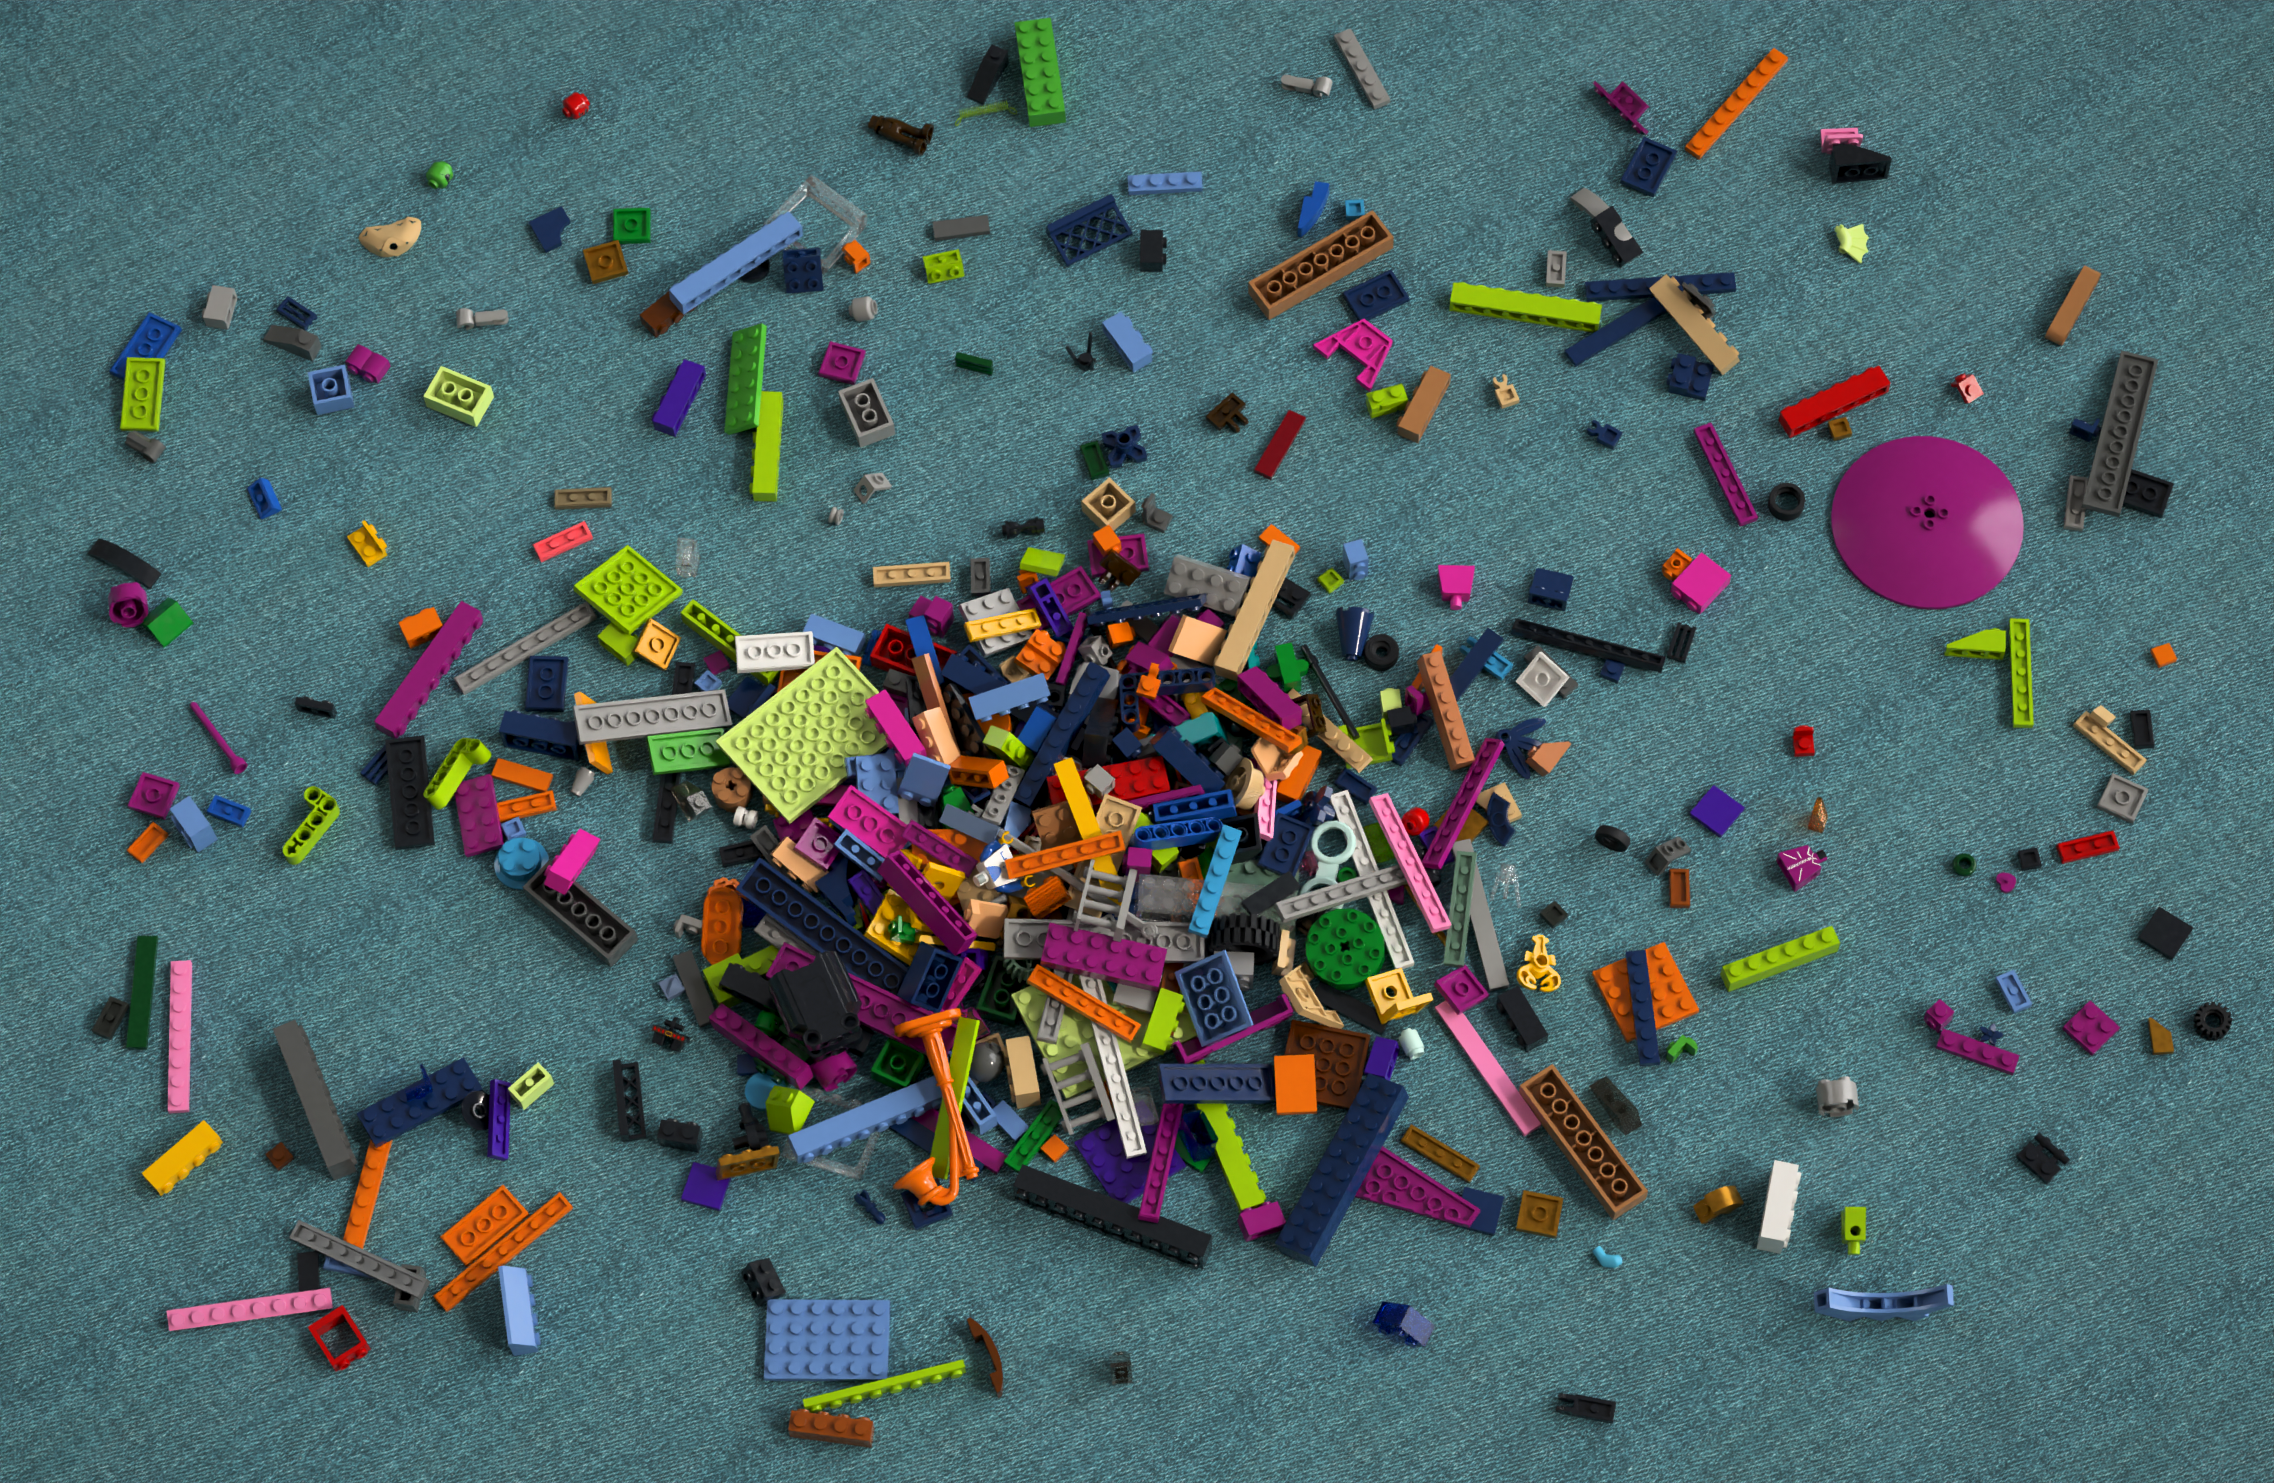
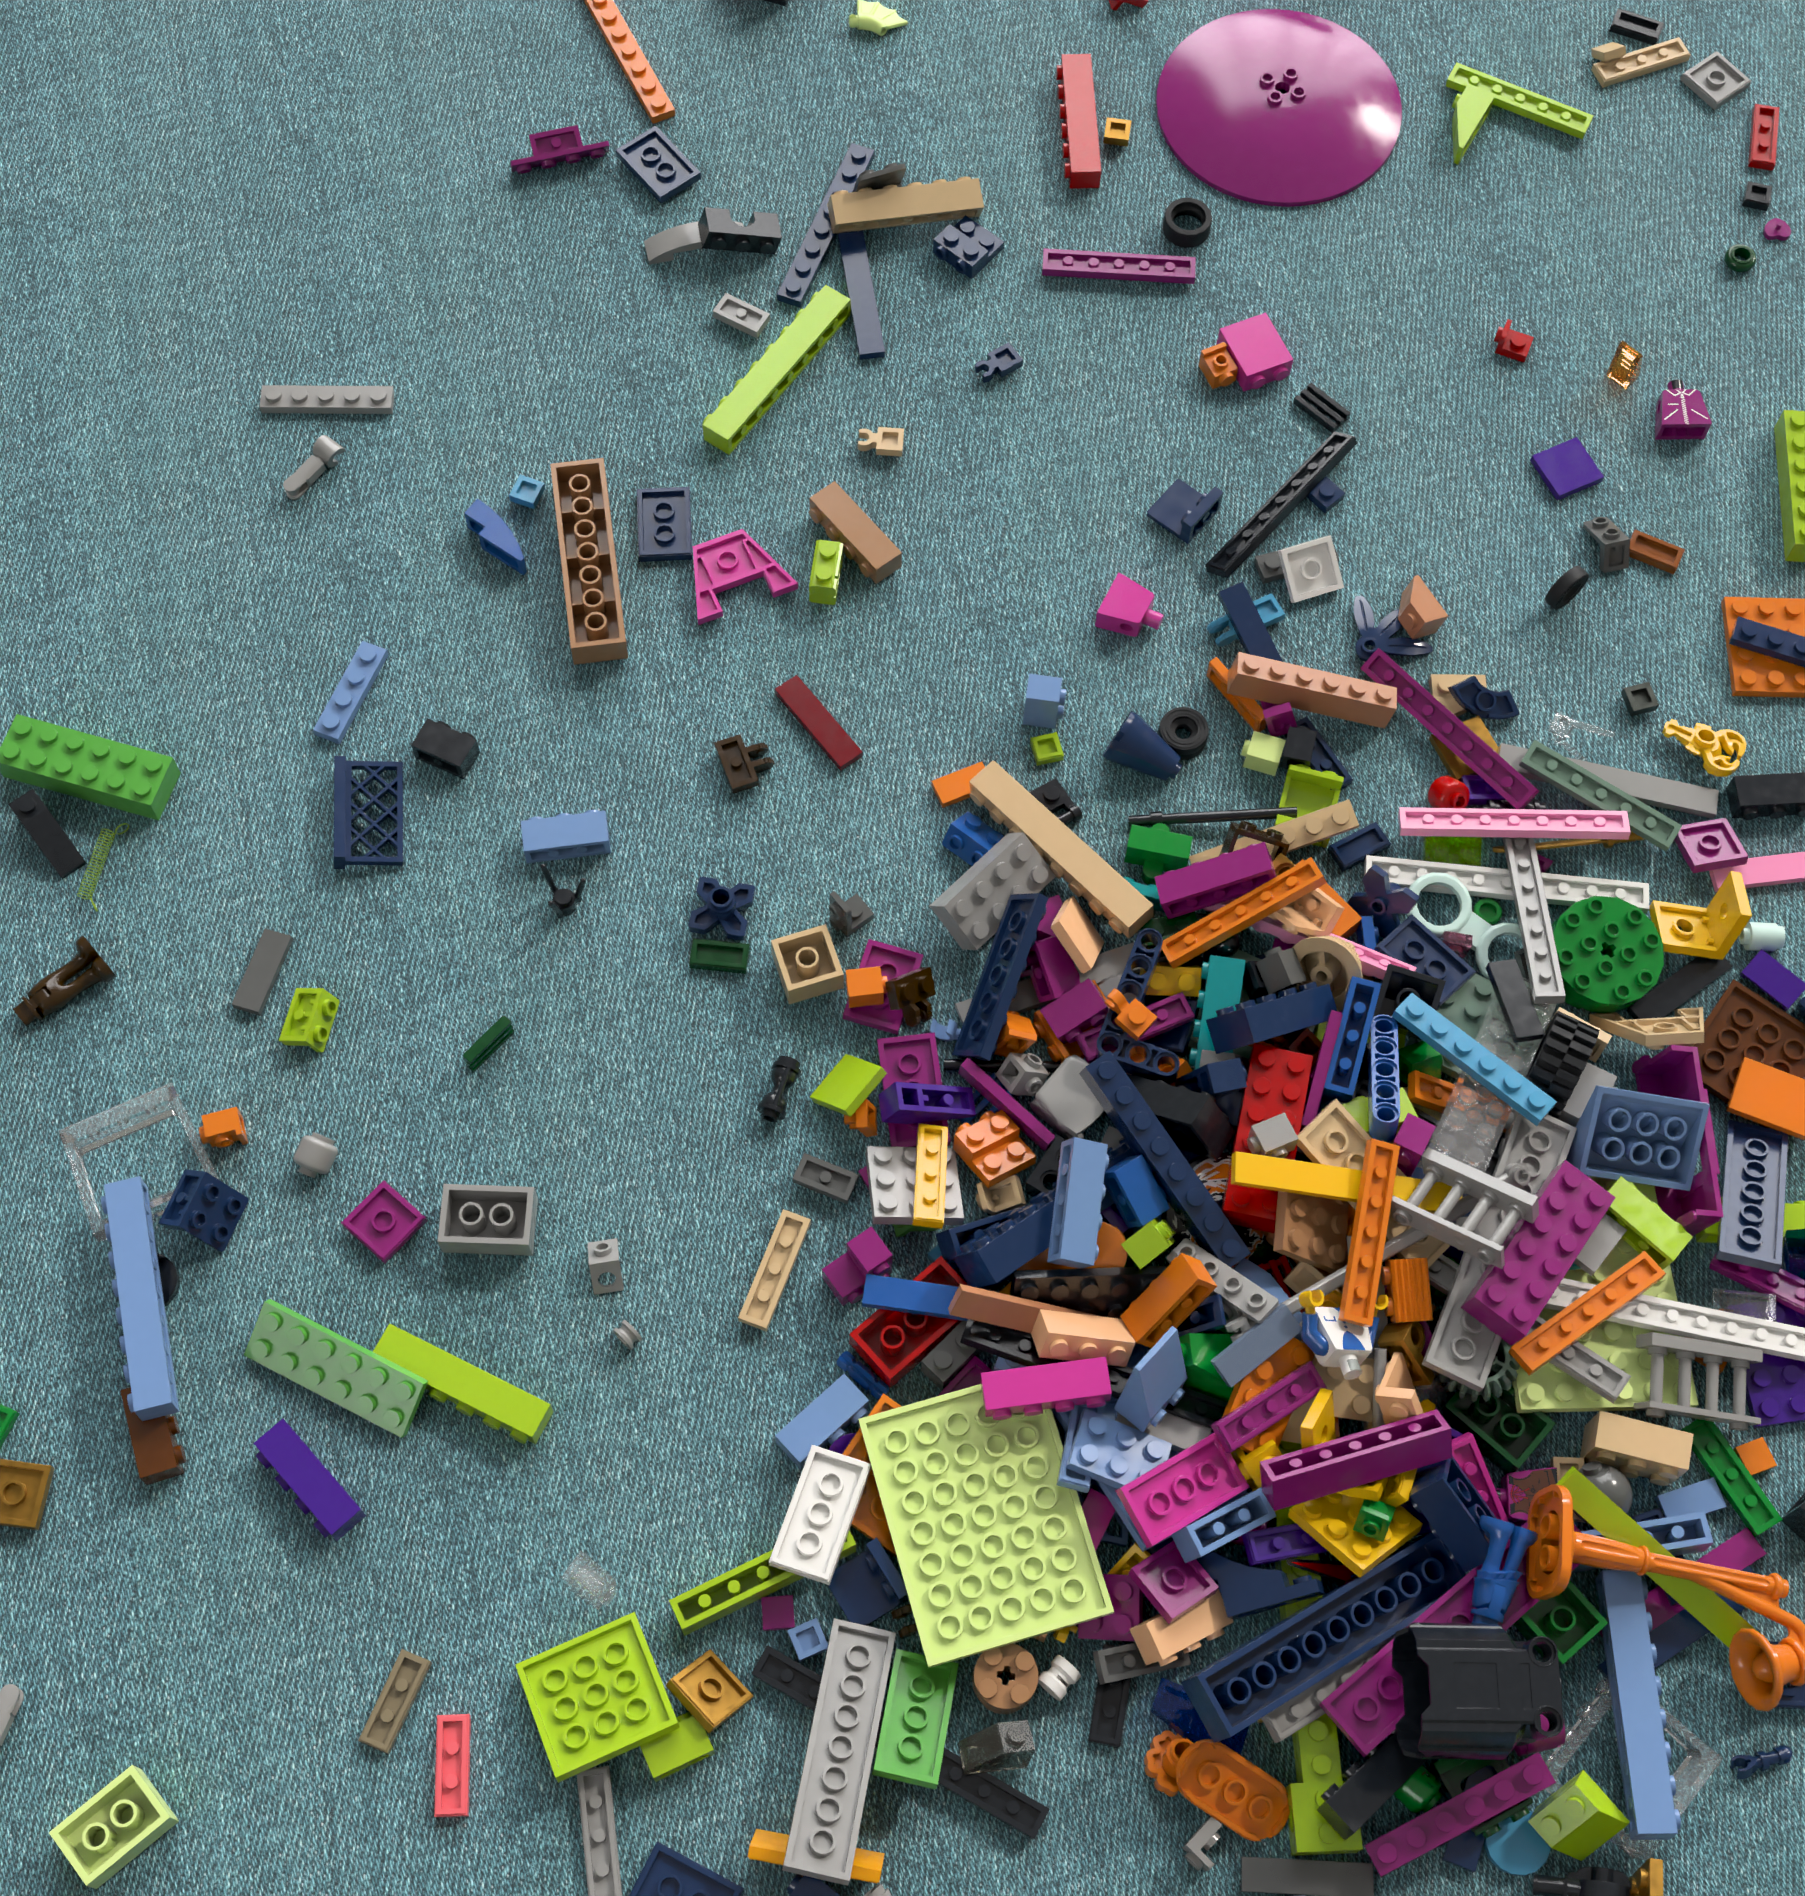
camera: 70 degrees left, 0 degrees up
(889, 1005) = (1496, 1587): none -> blue piece

